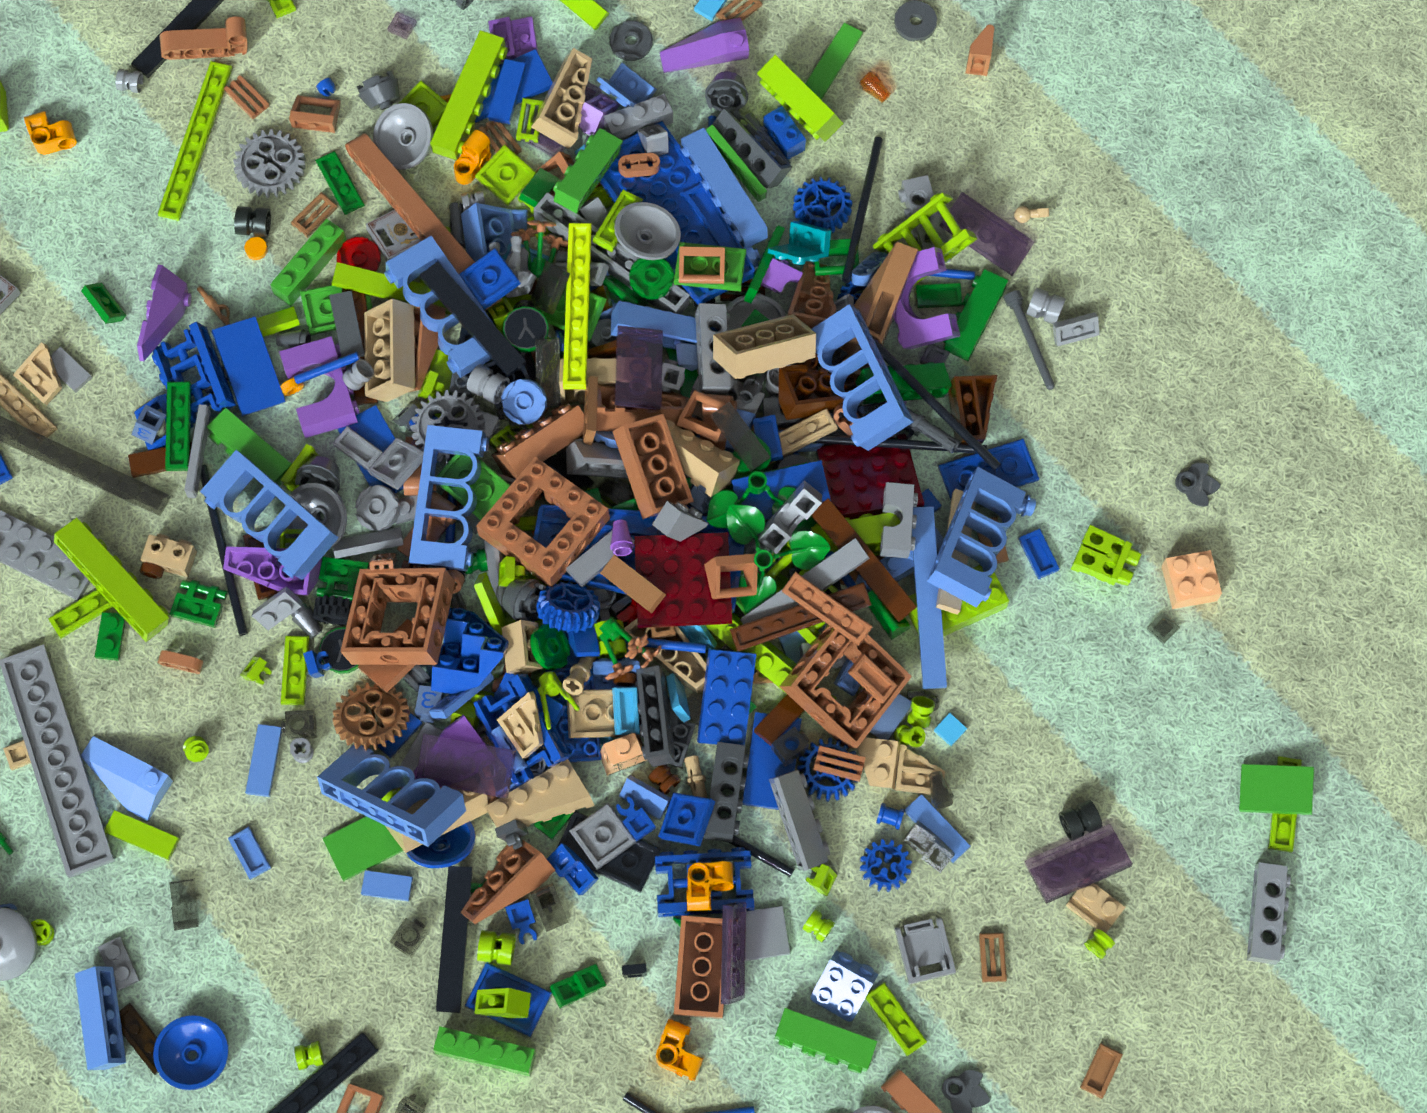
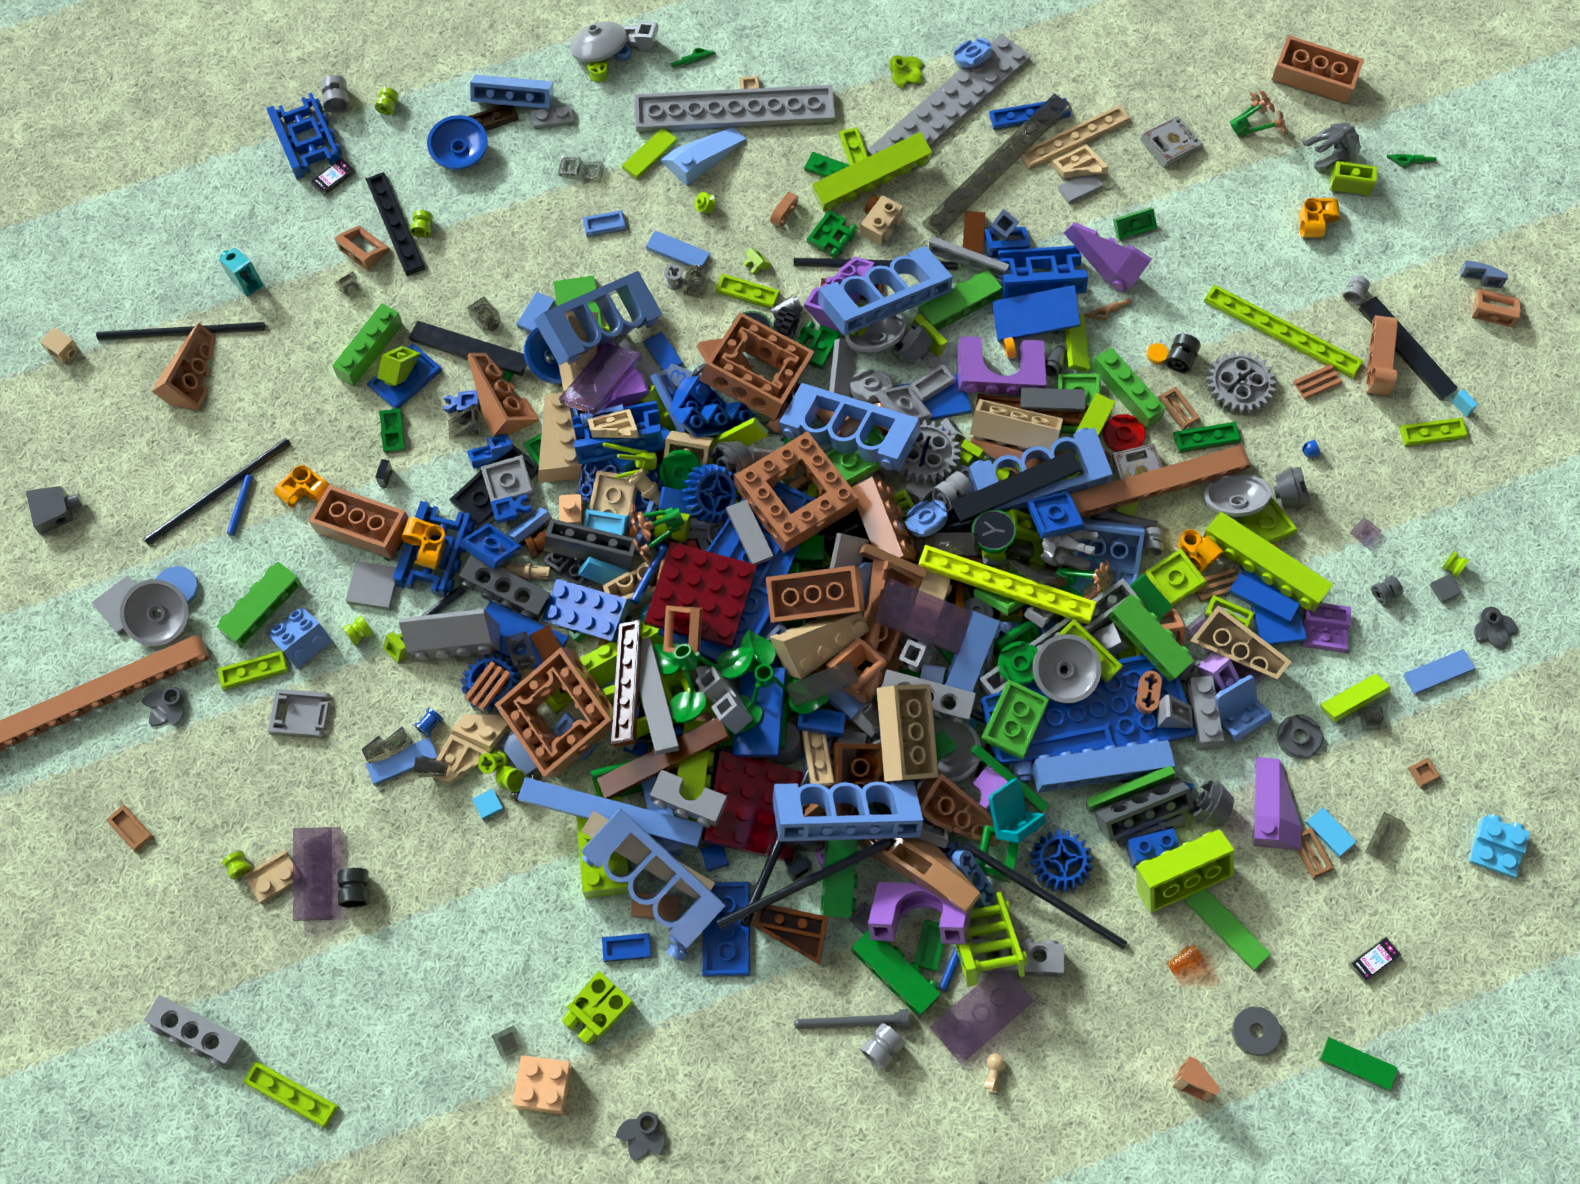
camera: 110 degrees right, 5 degrees down
(178, 426) = (996, 246): green tile -> none
(277, 608) = (802, 284): light grey plate -> none
(314, 121) = (1273, 444): nougat tile -> none
(314, 663) = (745, 302): blue tile -> none
(328, 367) = (1013, 371): blue bar -> none
(358, 374) = (1001, 397): light grey wheel -> none
(361, 727) = (675, 315): medium nougat gear -> none
(382, 563) = (815, 372): nougat tile -> none
(487, 947) = (447, 375): lime wheel -> none
(508, 571) = (759, 452): lime tile -> none
(512, 833) = (535, 409): dark grey tile -> none
(621, 539) = (755, 548): medium lavender cone -> none
(633, 584) = (708, 546): medium nougat tile -> none
(678, 521) = (753, 601): light grey slope -> none
(701, 252) = (1026, 710): nougat tile -> none
(733, 952) = (358, 544): clear purple tile -> none
(827, 609) = (619, 700): nougat tile -> none
(872, 678) = (548, 732): nougat tile -> none
(898, 869) = (393, 692): blue gear -> none
(933, 432) = (789, 867): dark grey pin -> none
(993, 978) = (282, 782): medium nougat tile -> none
(1076, 329) = (849, 1070): light grey plate -> none
(1276, 789) = (303, 1087): bright green tile -> none

